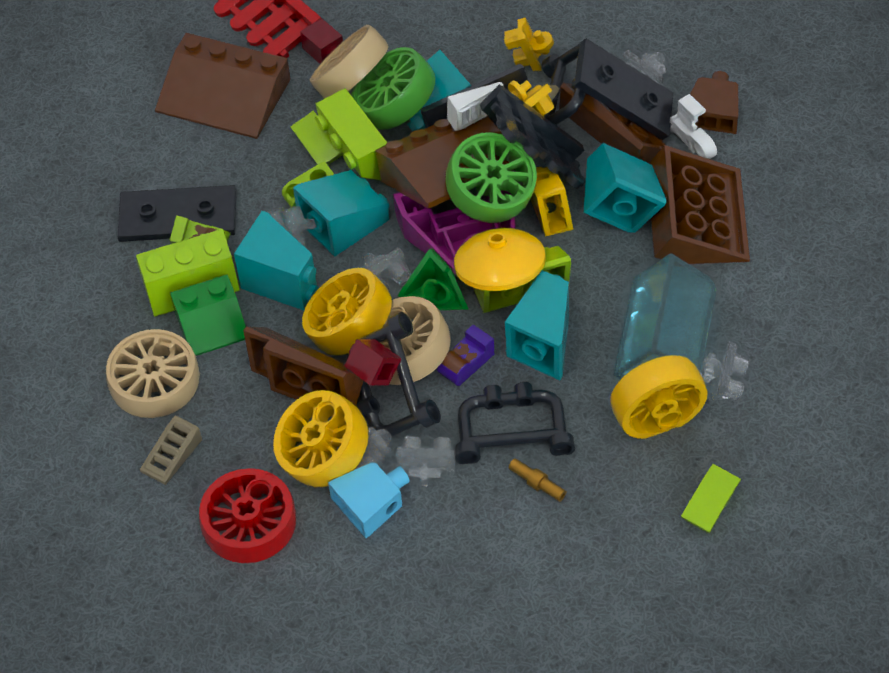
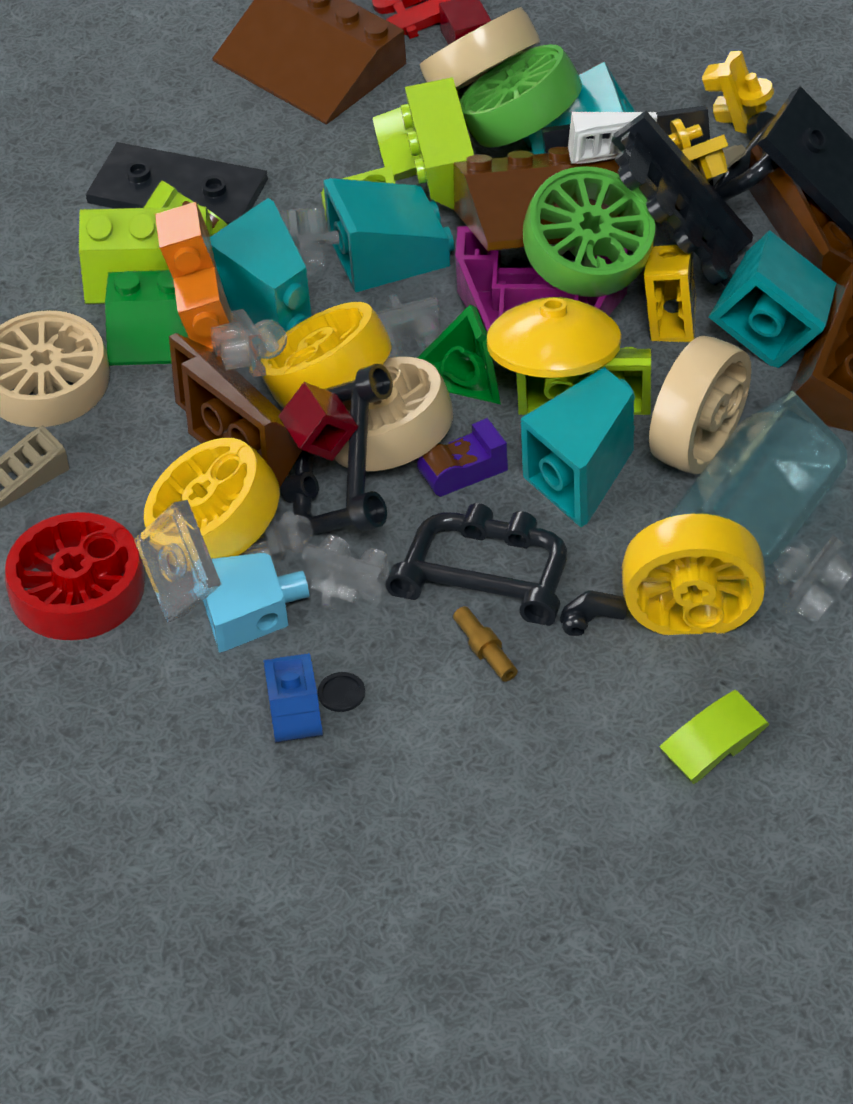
camera: 20 degrees right, 5 degrees down
(240, 283) = (191, 262): none -> orange arch
(292, 318) = (243, 342): none -> clear hips
(320, 486) = (177, 561): none -> clear tile
(434, 554) = (293, 697): none -> blue plate
(459, 541) = (341, 691): none -> black piece
(592, 433) = (588, 606): none -> black arm
(609, 277) = (699, 403): none -> tan piece

